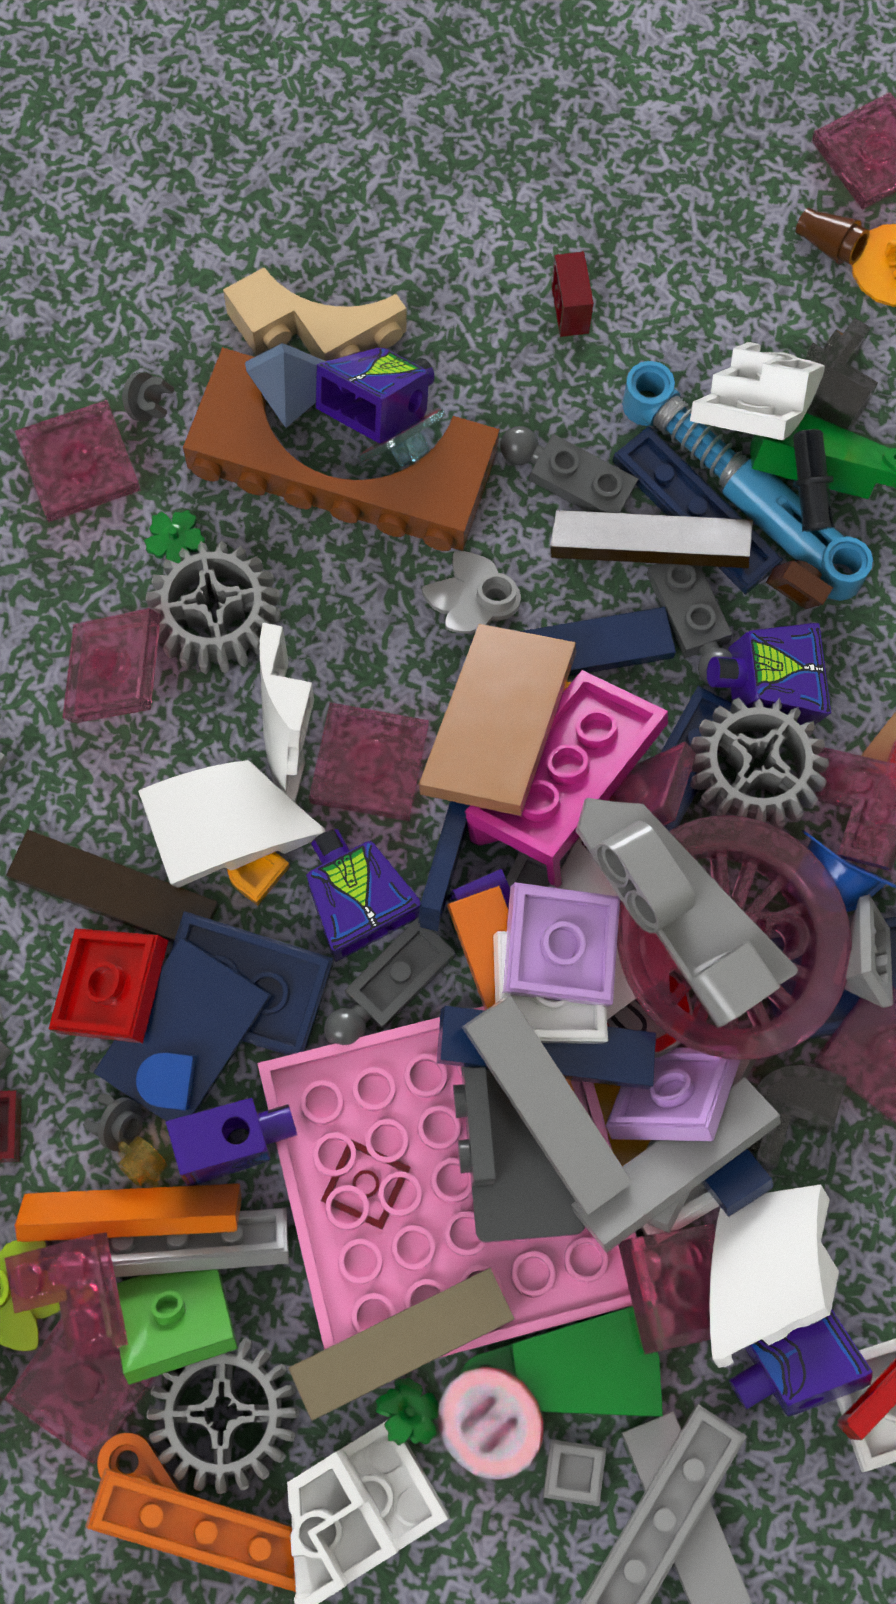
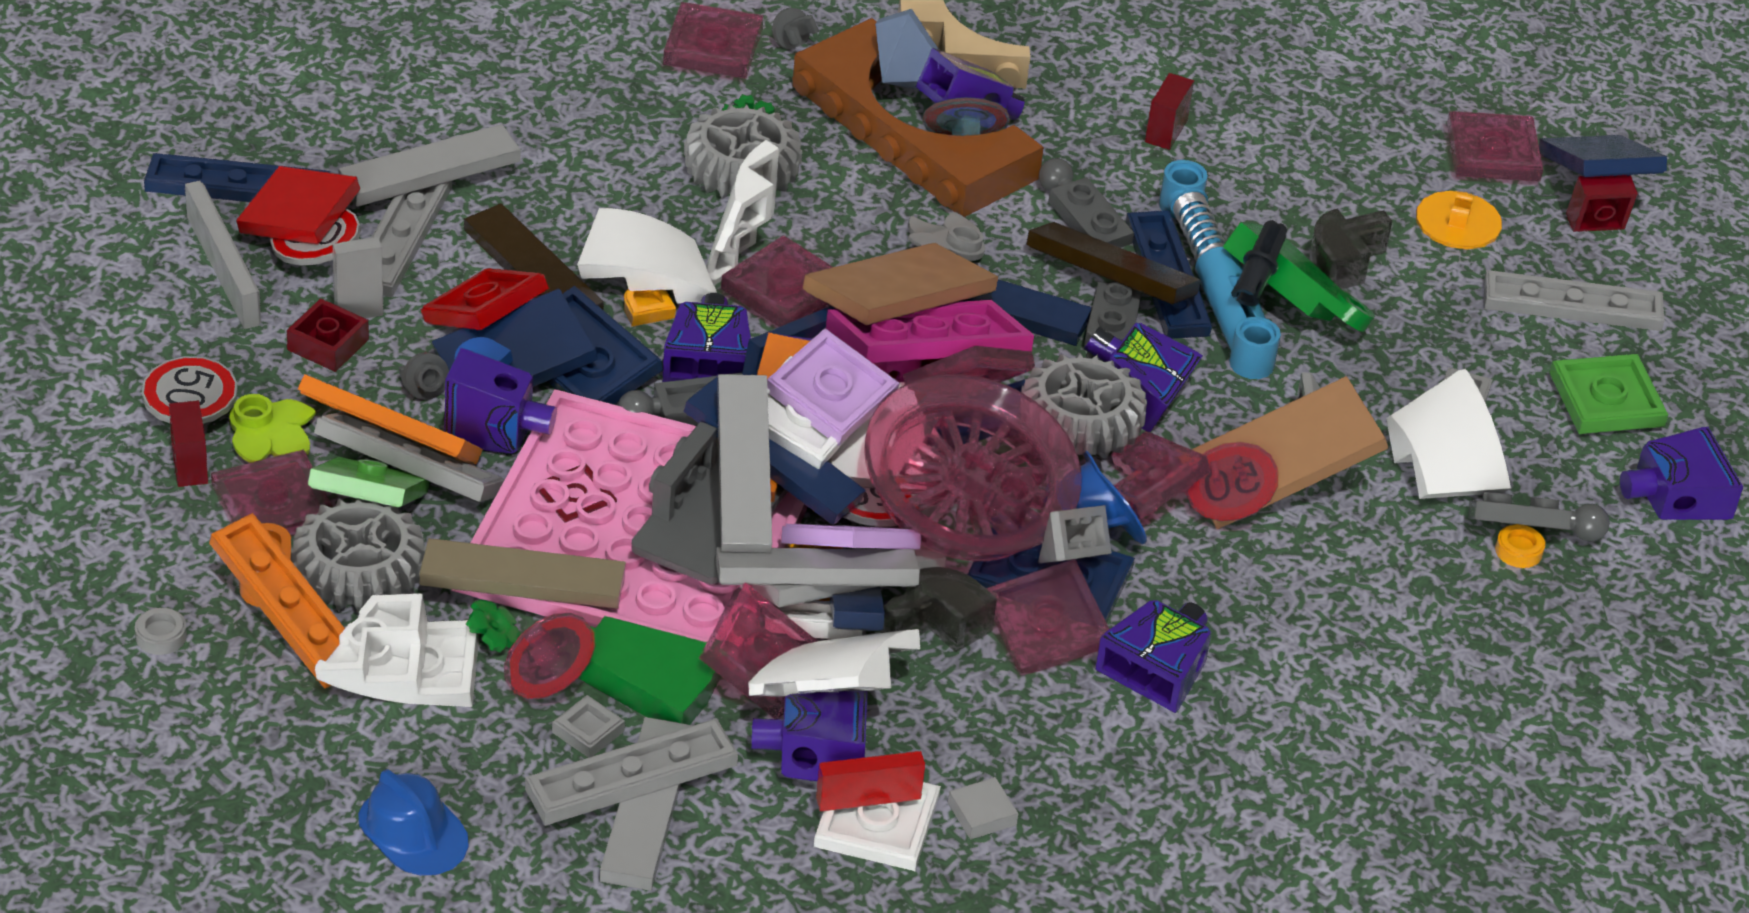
camera: 30 degrees right, 30 degrees down
(83, 1283) = (313, 422): clear pink plate -> none
(112, 666) = (639, 143): clear pink plate -> none
(141, 1162) = (422, 399): clear yellow plate -> none
(672, 895) = (946, 427): light grey panel -> none
(760, 393) = (1281, 205): white slope -> none
(800, 583) = (1209, 336): reddish brown plate -> none
(836, 236) = (1417, 175): reddish brown cone -> none

